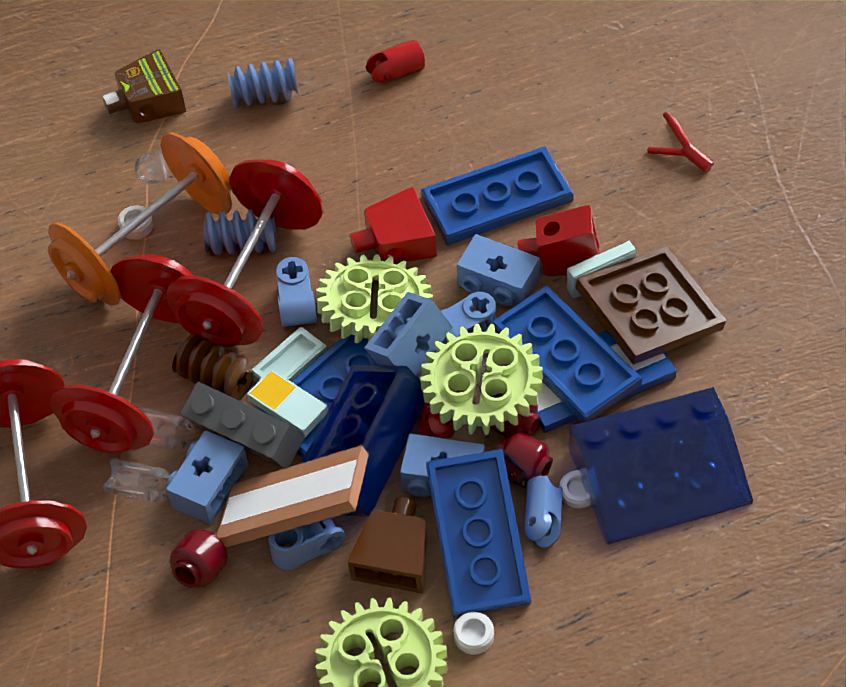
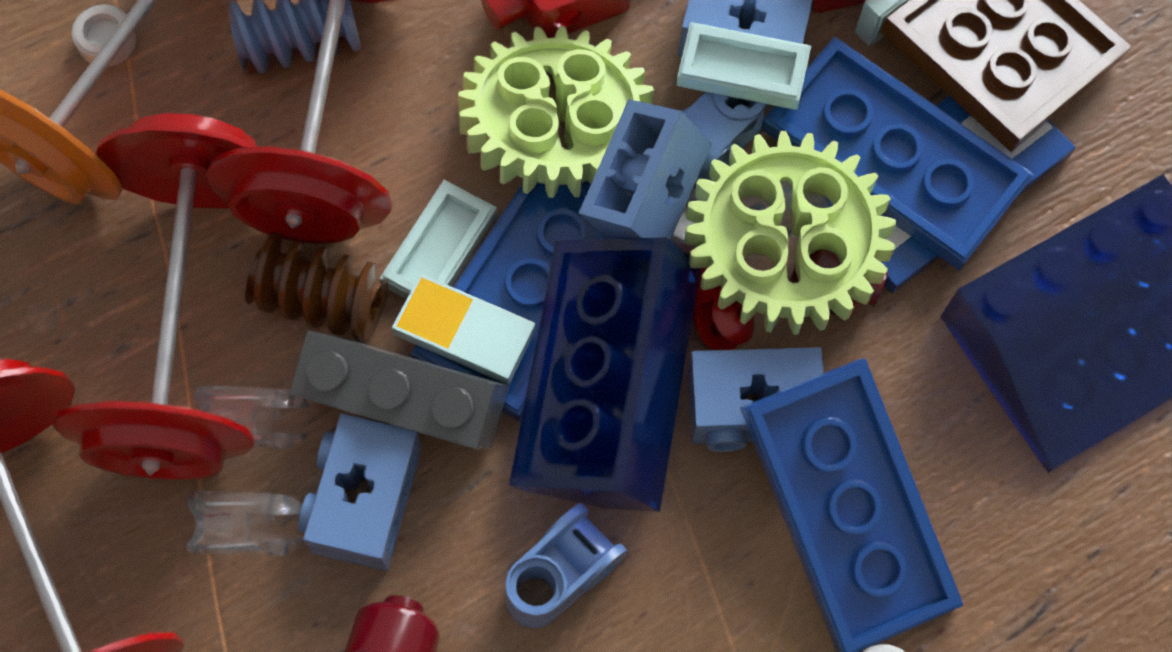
camera: 20 degrees left, 15 degrees up
(293, 497) = (535, 515): nougat tile -> none
(295, 294) = (420, 129): medium blue piece -> none
(392, 549) = (717, 559): reddish brown torso -> none
(484, 289) = (743, 65): none -> light aqua tile
(525, 458) = (890, 348): dark red head -> none
(543, 511) = (938, 443): medium blue piece -> none
(573, 490) = (967, 389): white tile -> none

